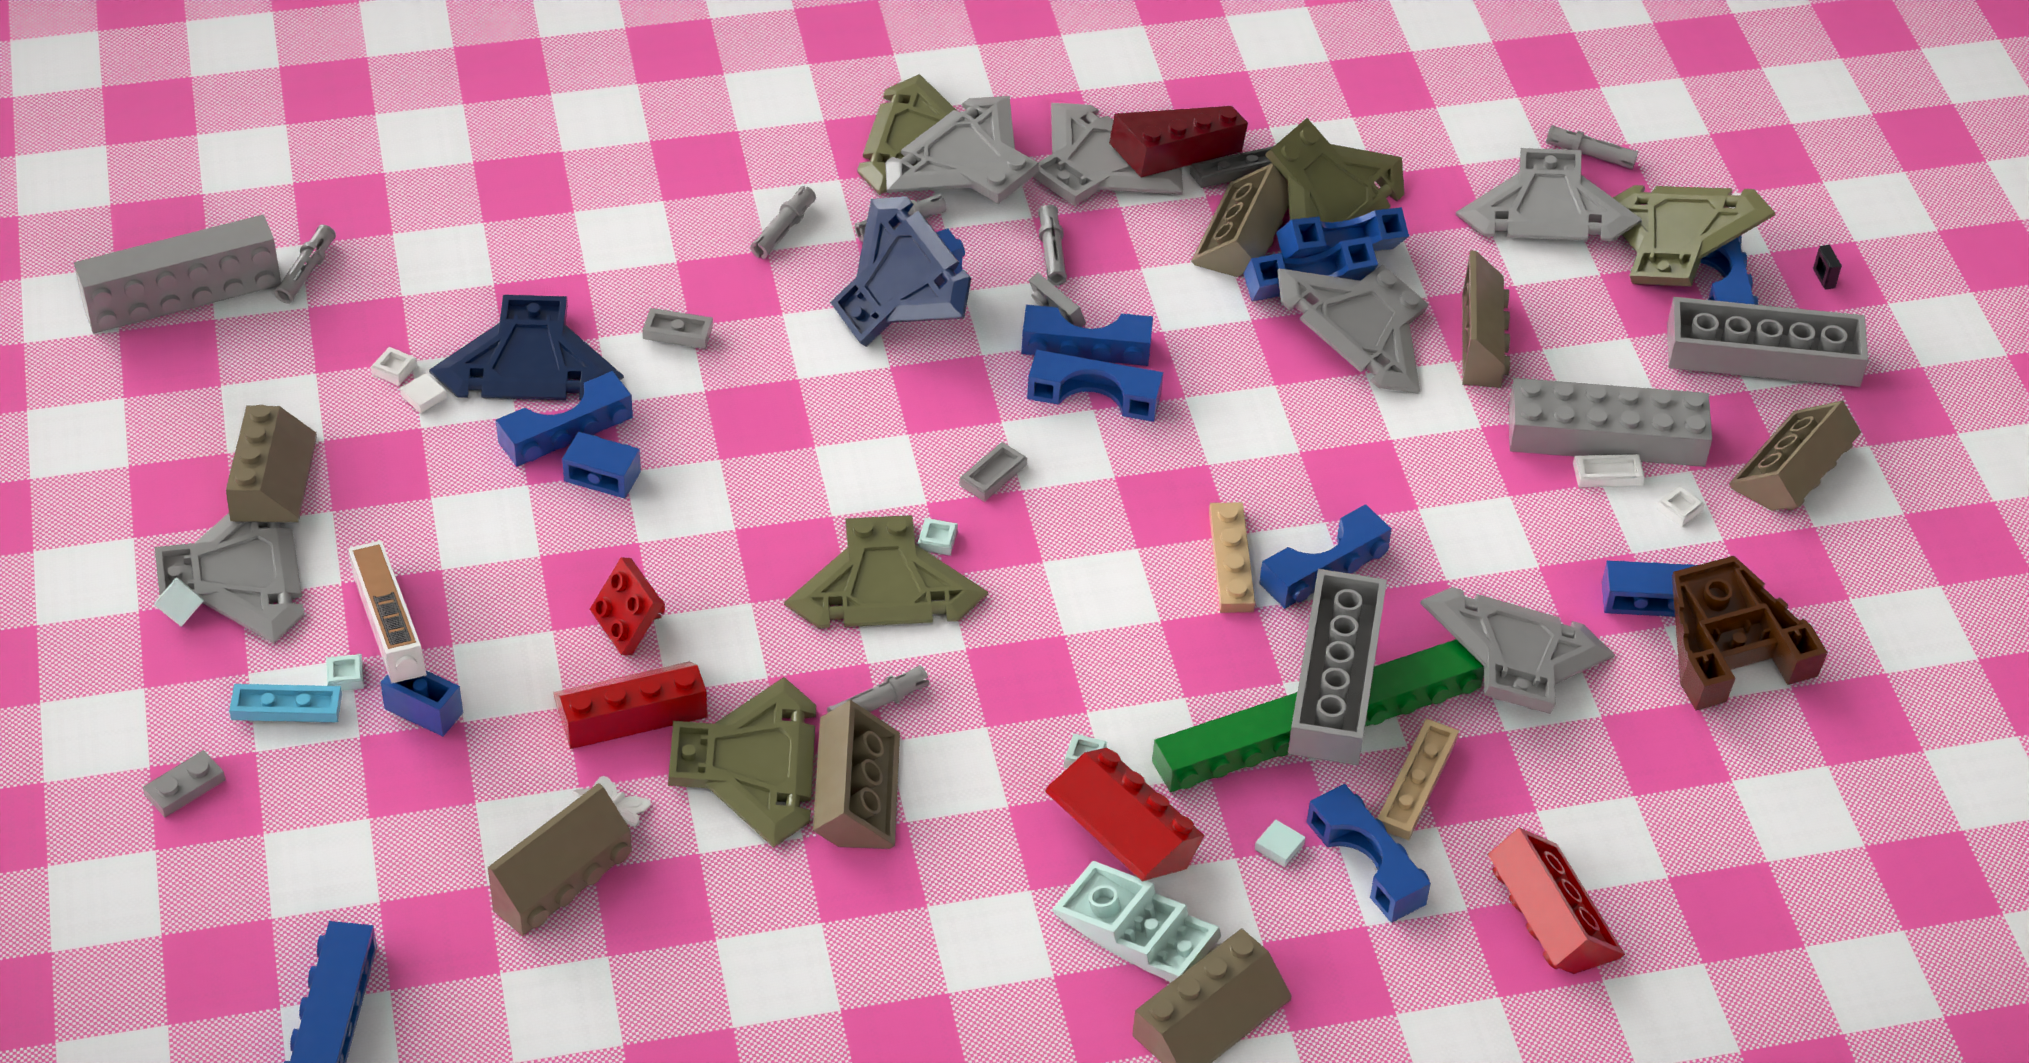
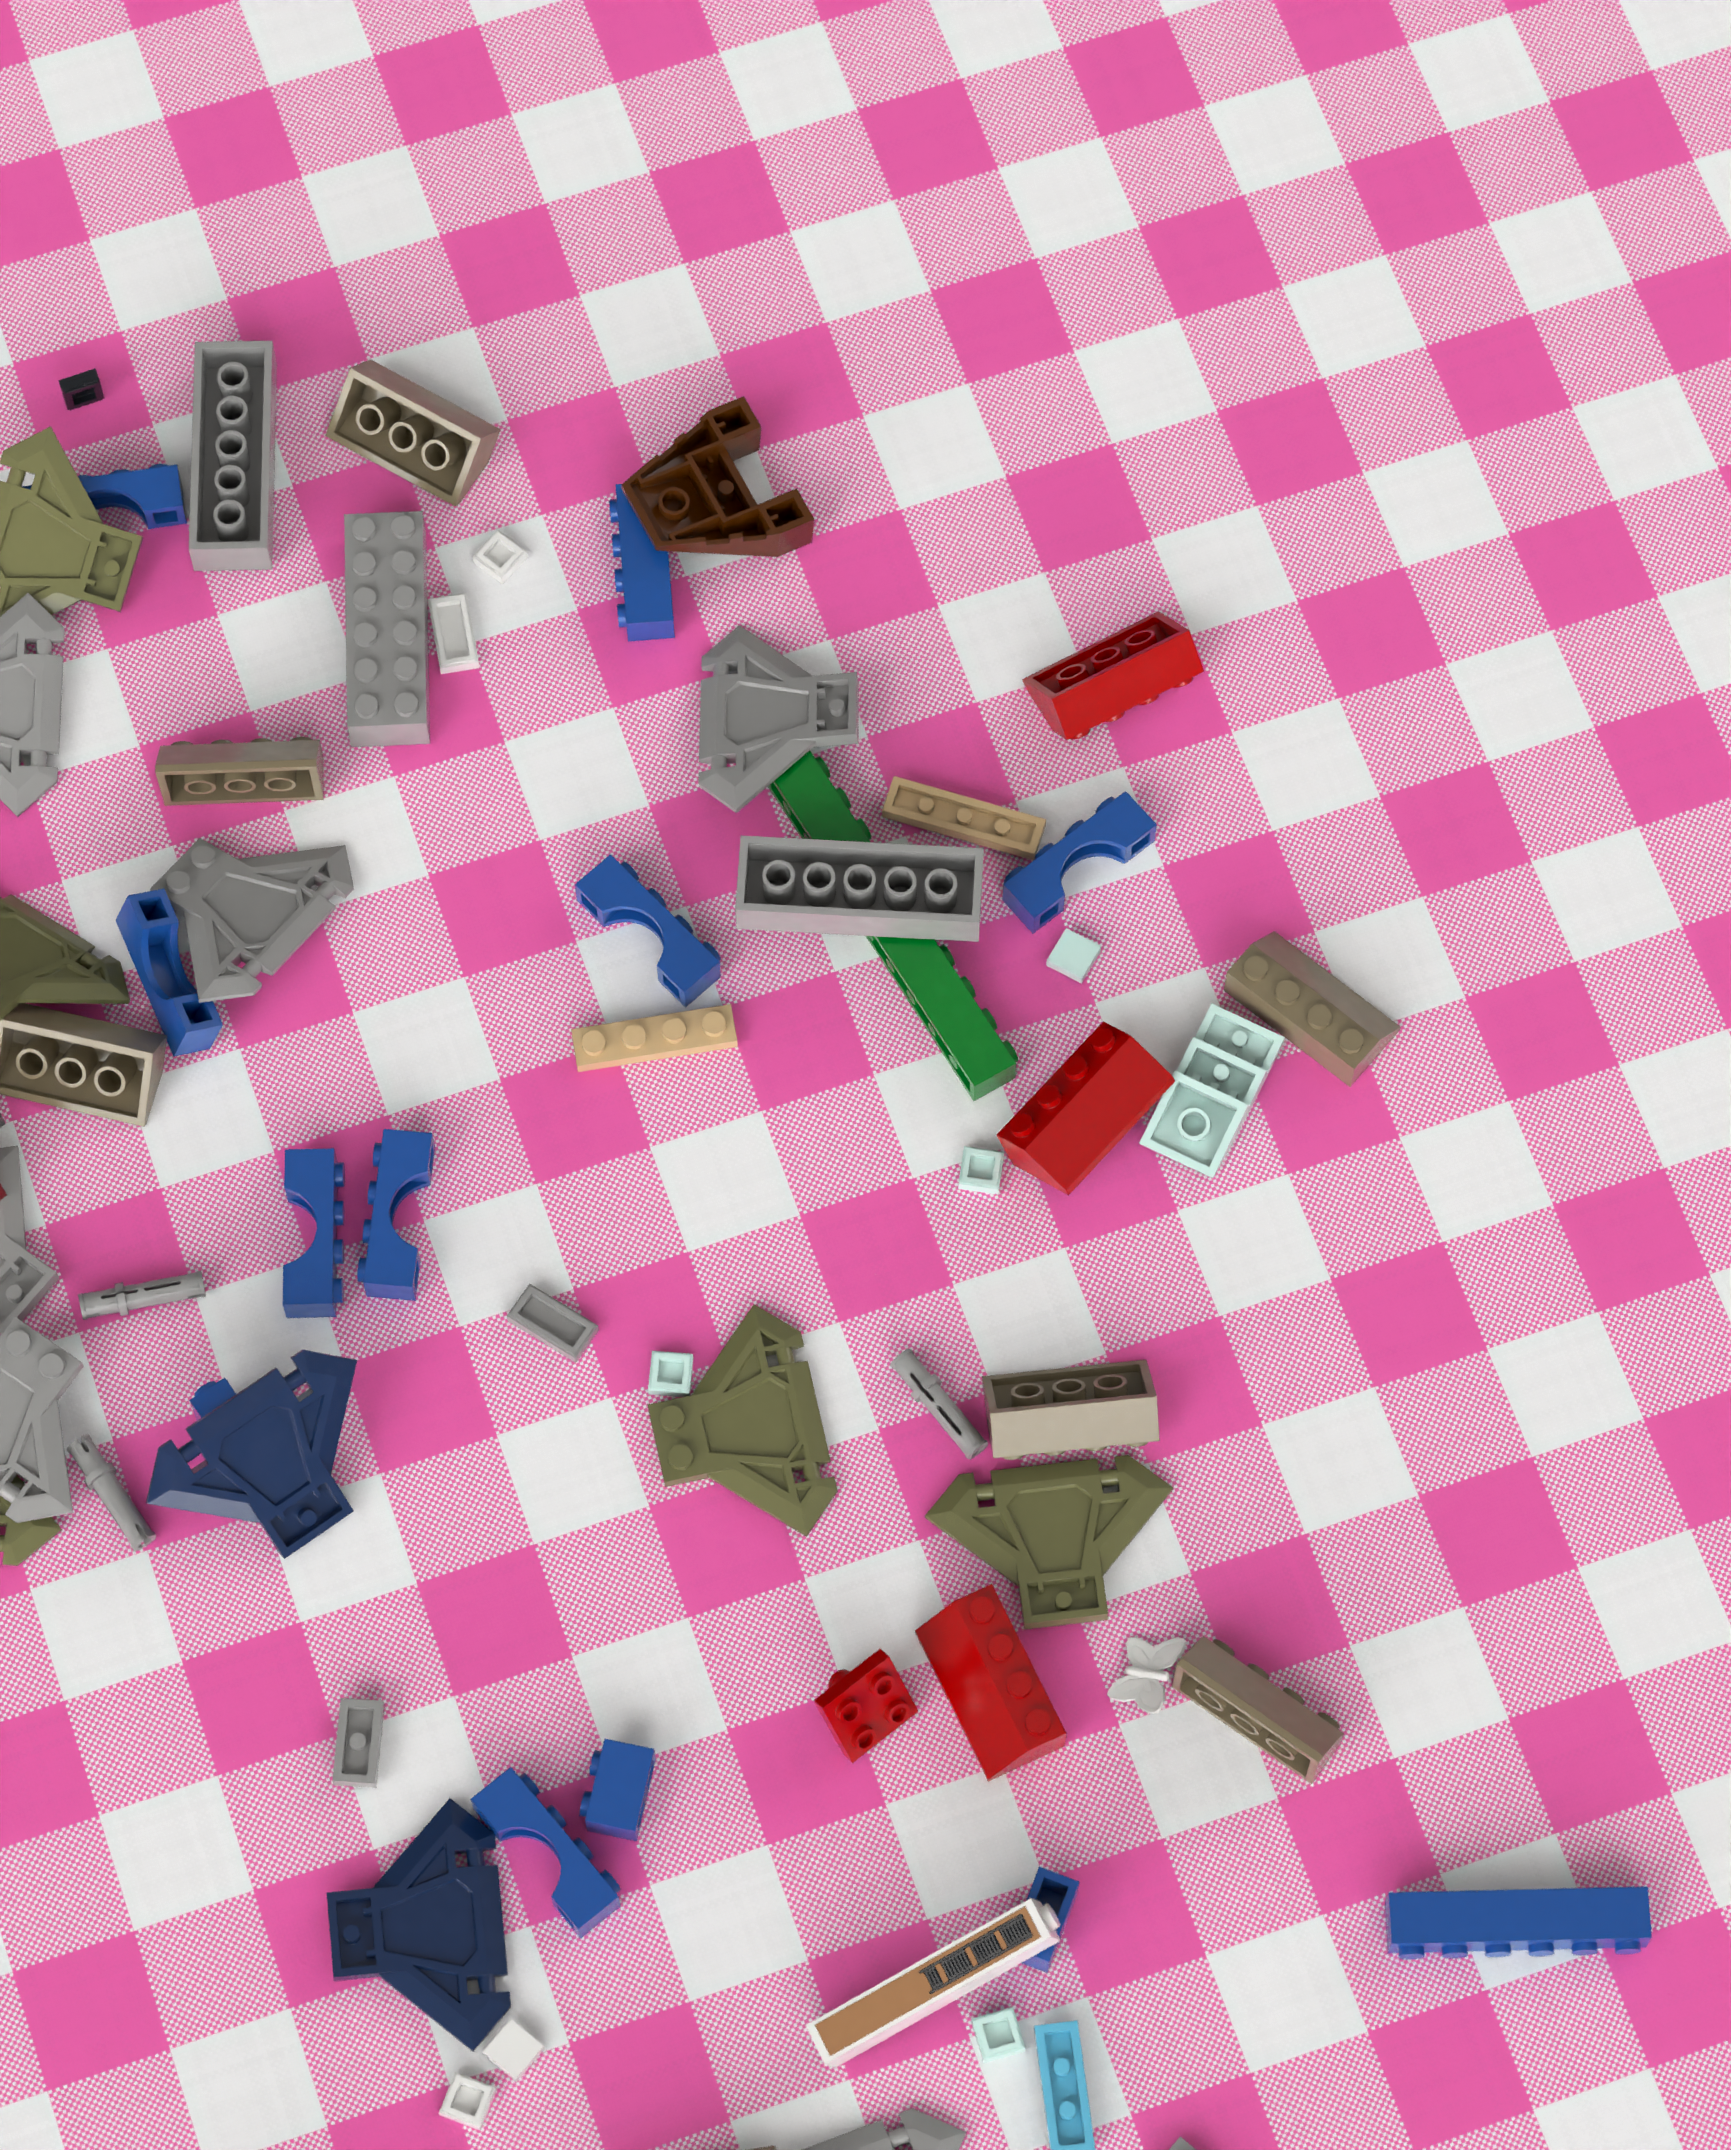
camera: 95 degrees left, 20 degrees up
(790, 213) = (136, 1641): light grey pin -> none
(1048, 295) = (244, 1289): light grey plate -> none
(1311, 236) = (89, 905): blue arch -> none

